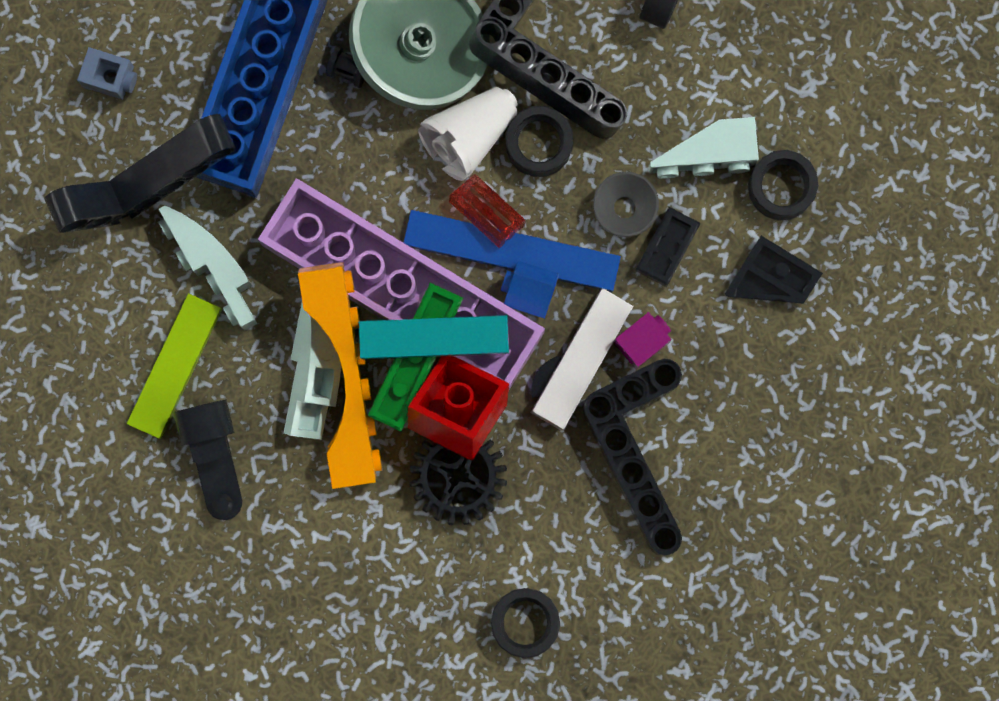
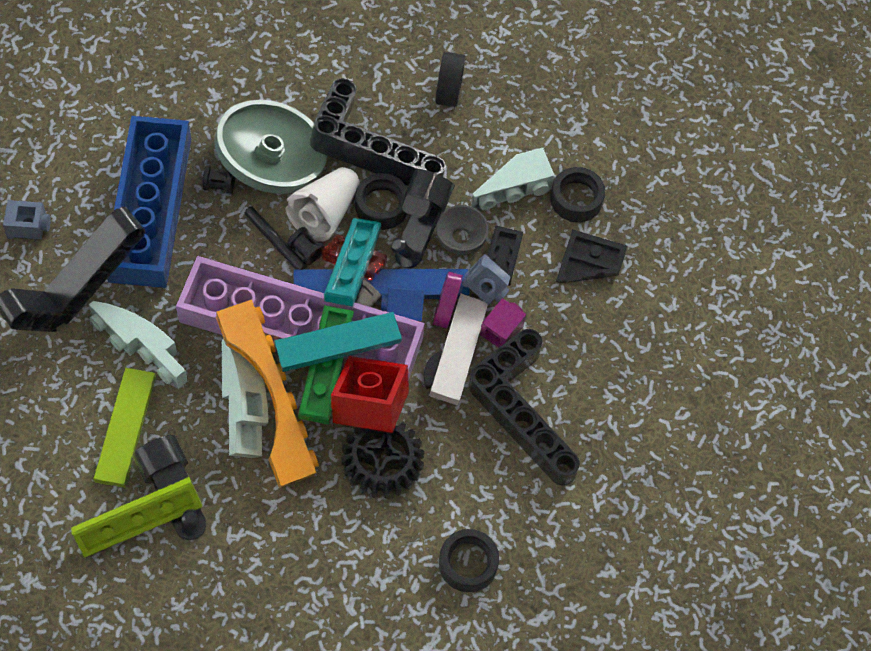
camera: 20 degrees left, 20 degrees down
(164, 486) = (136, 517): none -> lime tile
(399, 161) = (274, 238): none -> black bar
(433, 181) = (305, 245): none -> black bush
(480, 224) = (352, 262): none -> teal tile
(486, 266) = (367, 294): none -> tile
(583, 295) = (447, 300): none -> magenta beam
(586, 164) = (424, 202): none -> black piece
(637, 281) = (487, 271): none -> sand blue brick

